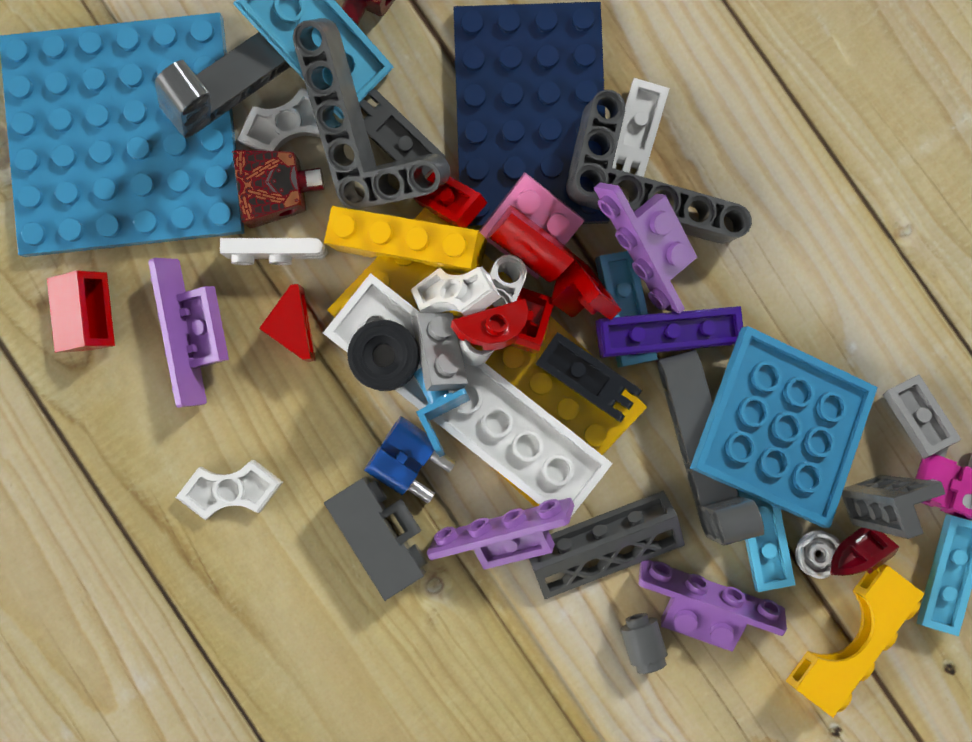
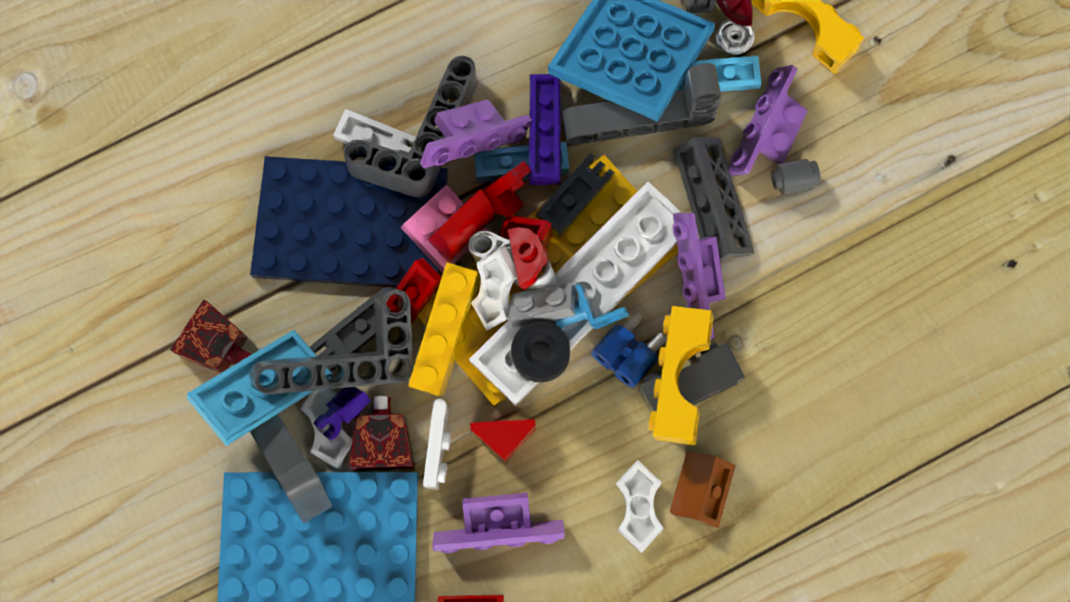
camera: 75 degrees left, 10 degrees down
(254, 560) = (702, 488): none -> dark orange panel
(300, 135) = (342, 407): none -> dark purple plate
(322, 523) = (688, 334): none -> yellow arch

